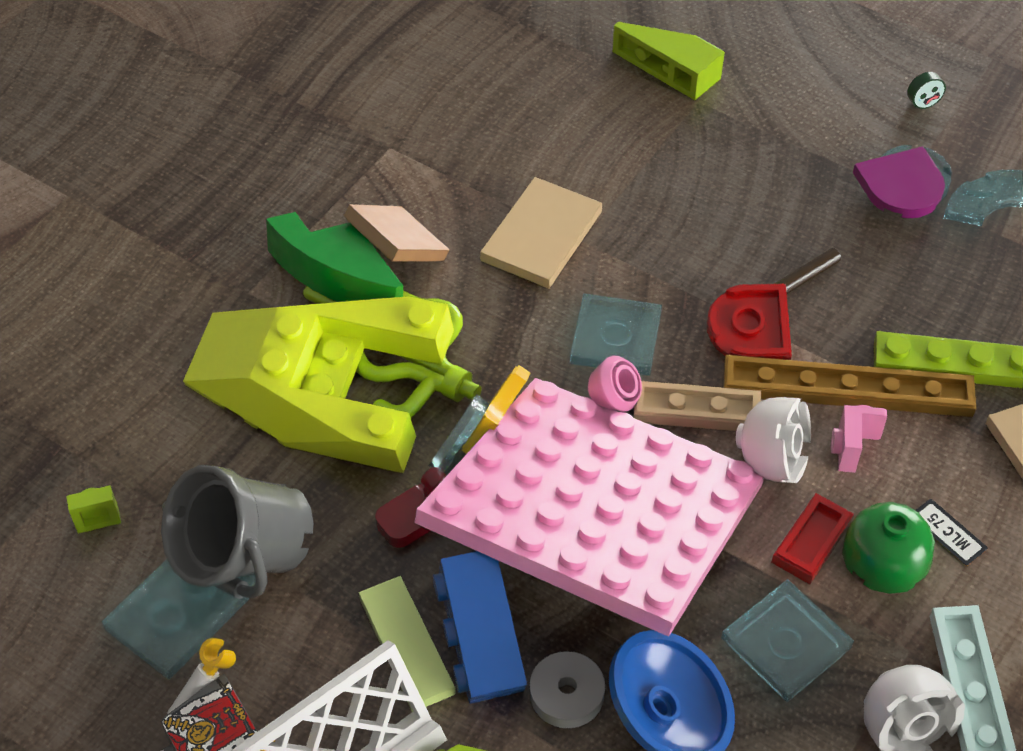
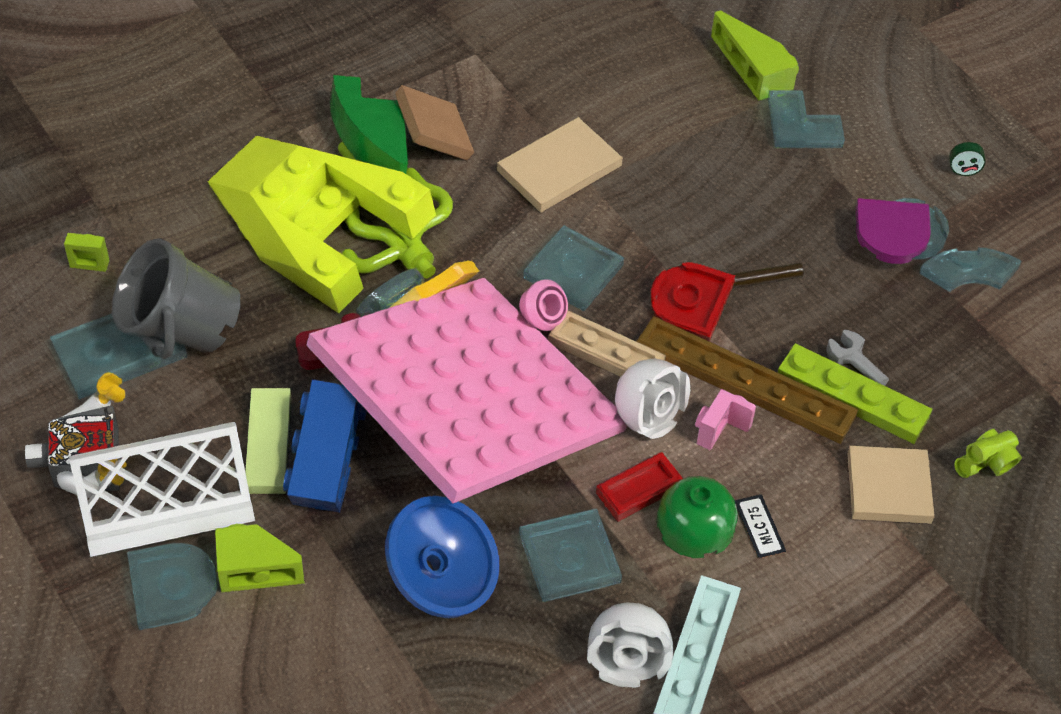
camera: 20 degrees right, 0 degrees up
(561, 708) = (365, 508): light grey piece -> none
(749, 115) = (798, 130): none -> clear light blue tile
(935, 322) = (854, 356): none -> light grey bar

